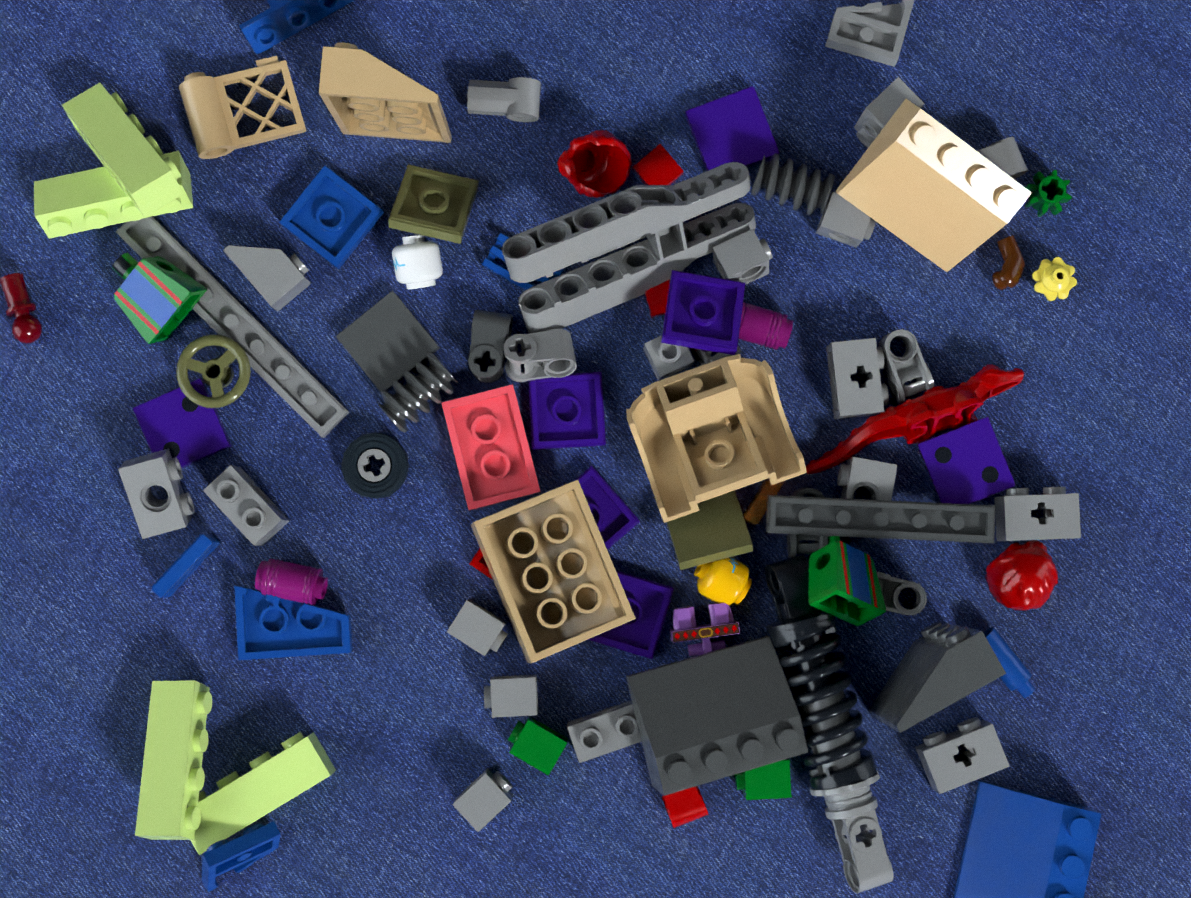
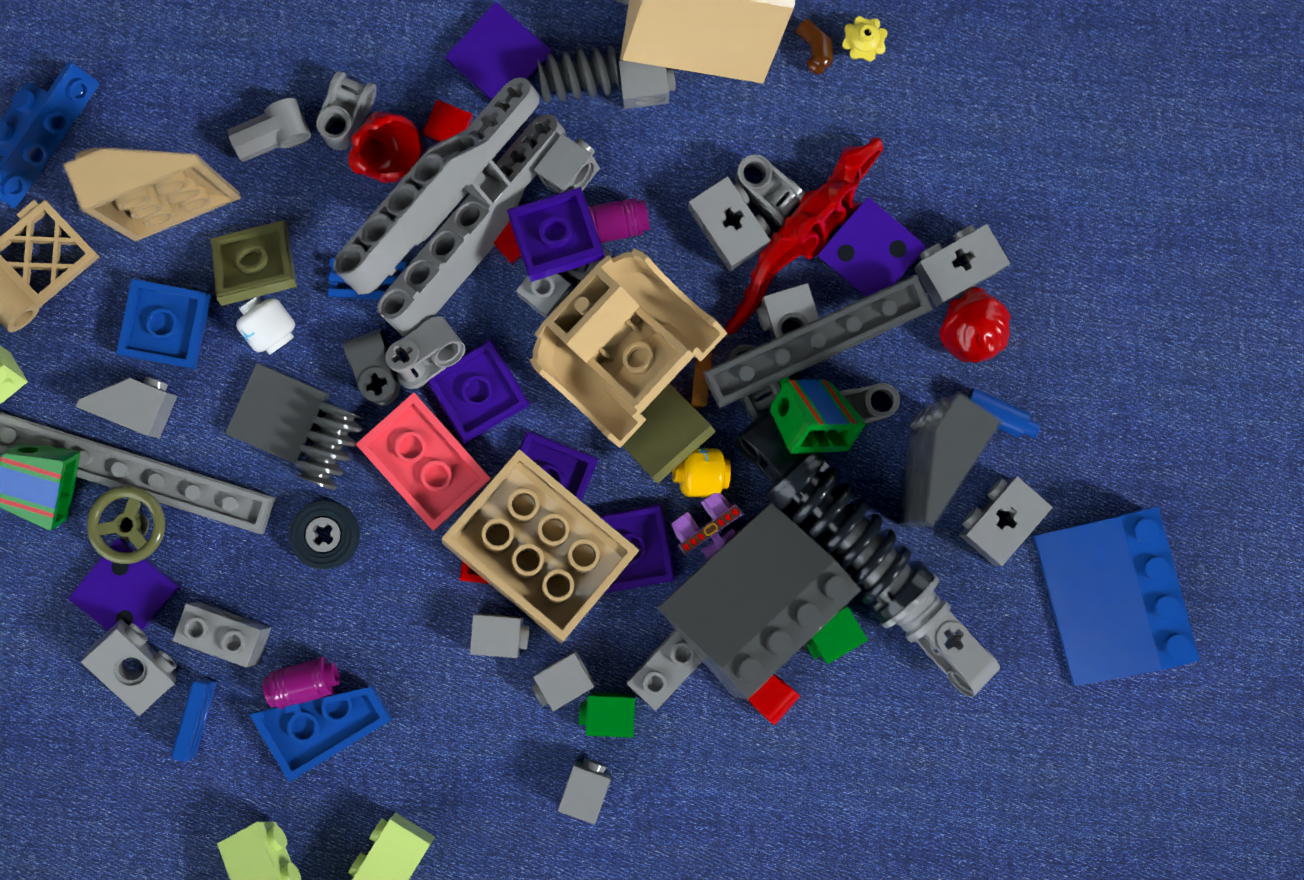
camera: 30 degrees left, 0 degrees up
(582, 108) = (346, 103): none -> light grey piece

